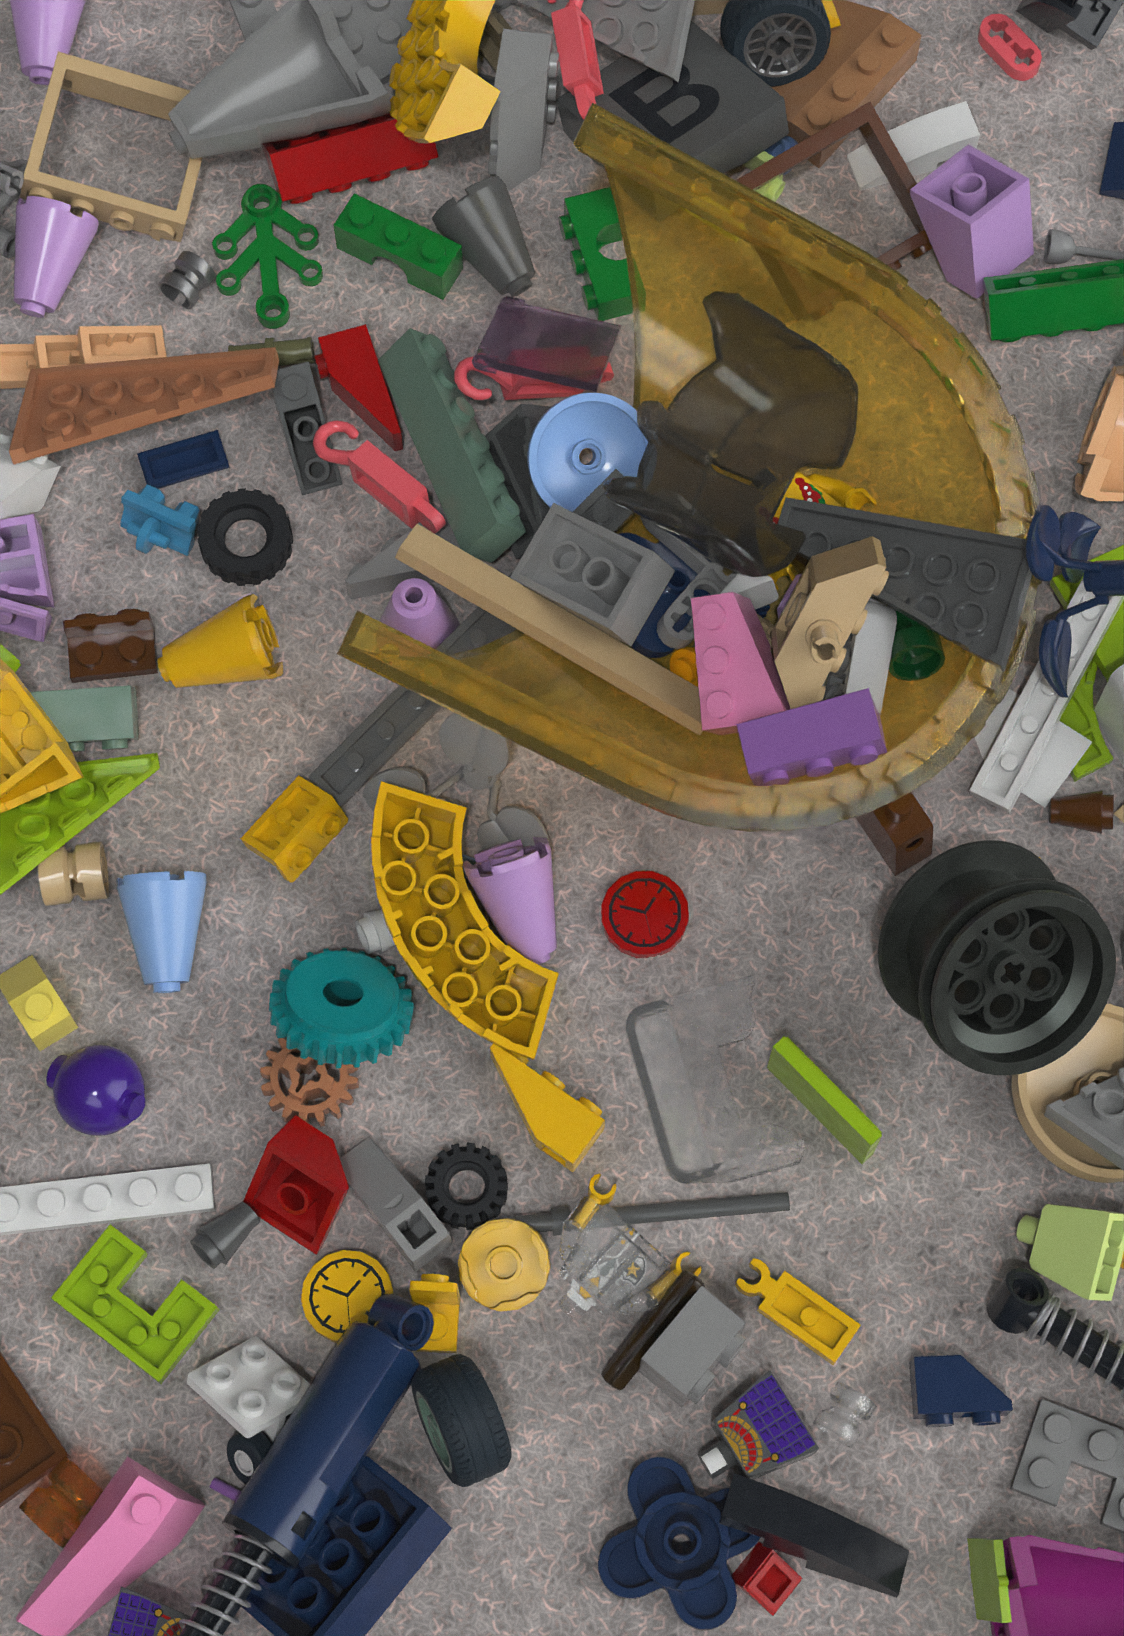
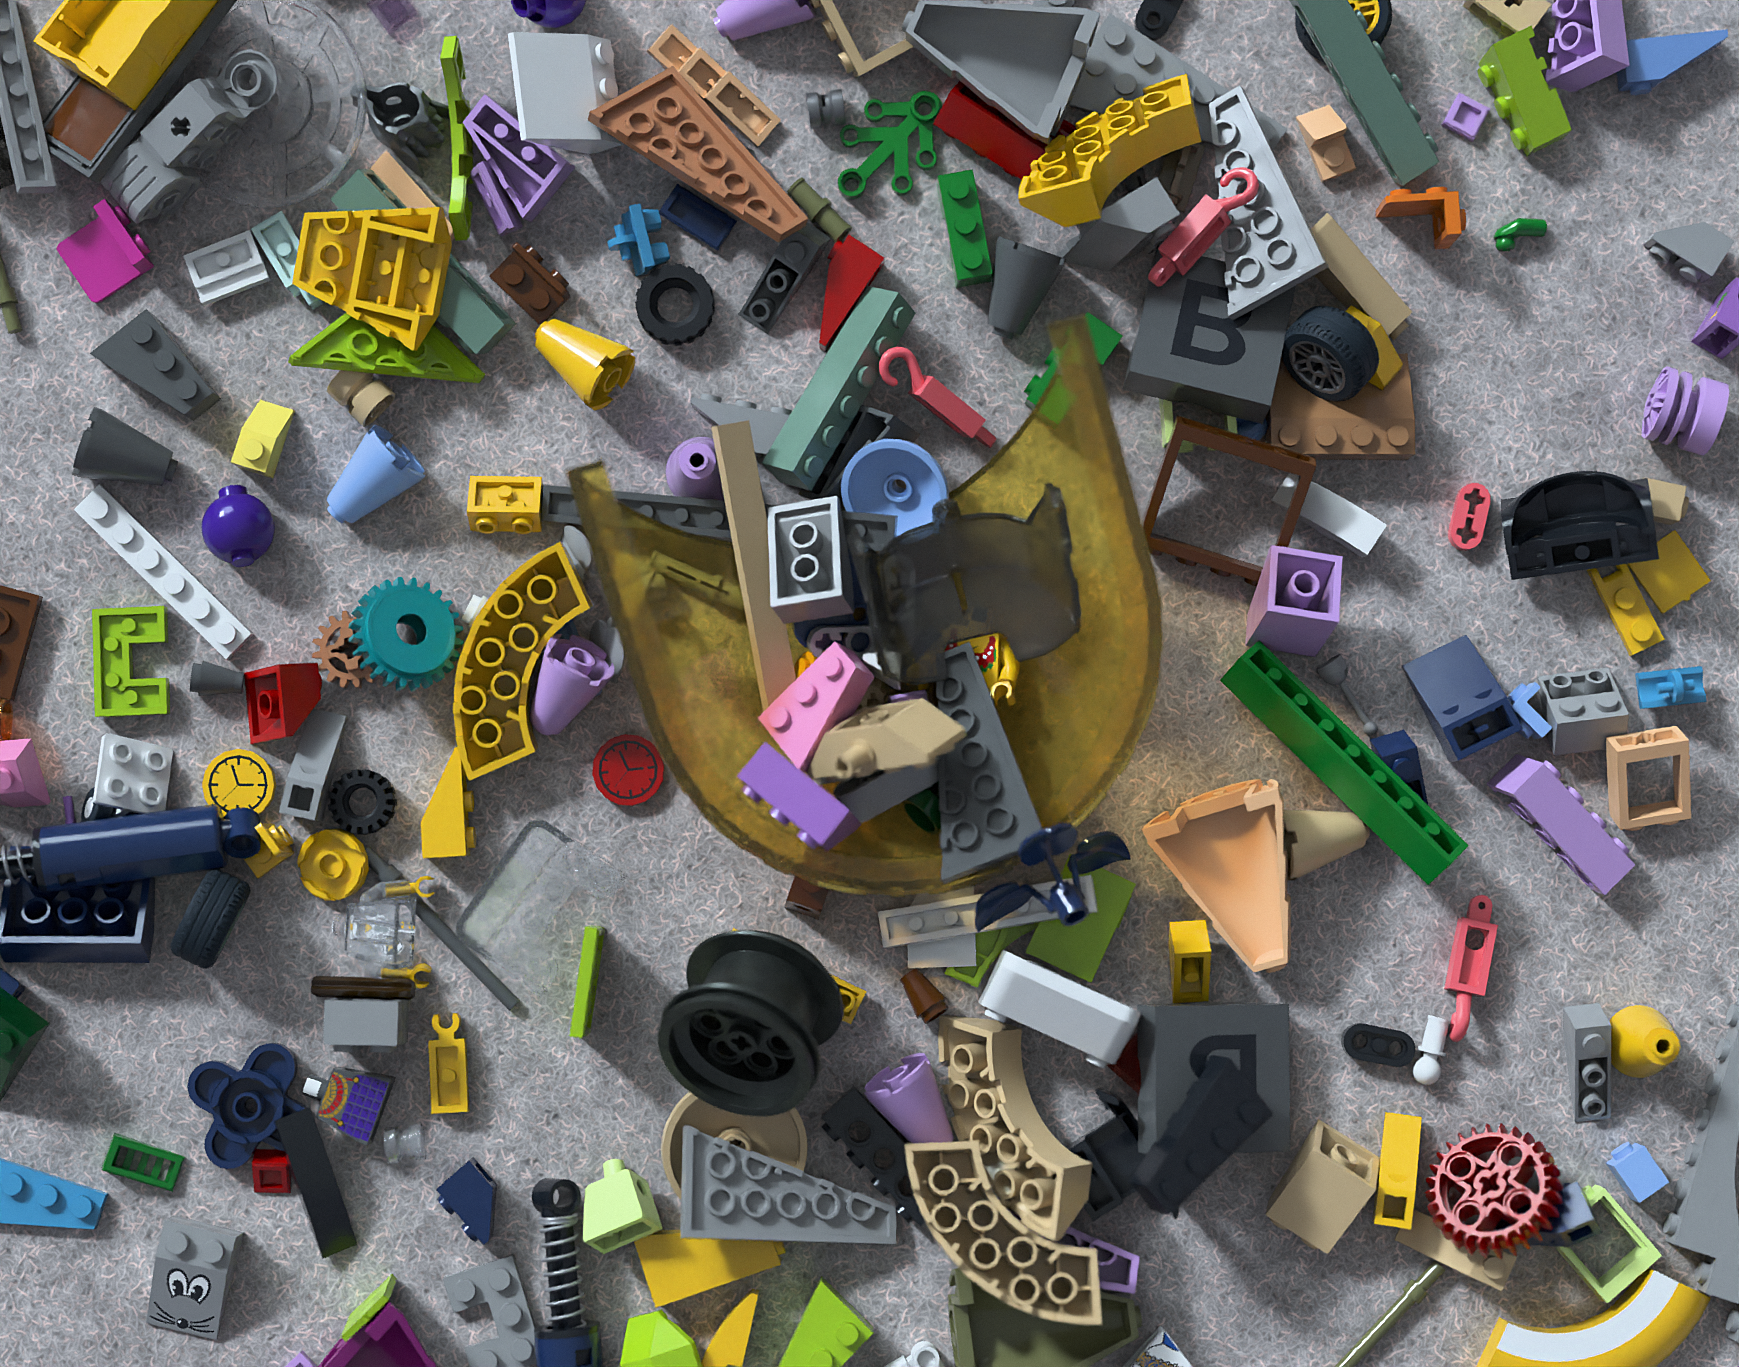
camera: 45 degrees right, 15 degrees up
(380, 477) = (778, 357): coral piece -> none
(546, 345) = (963, 391): piece -> none

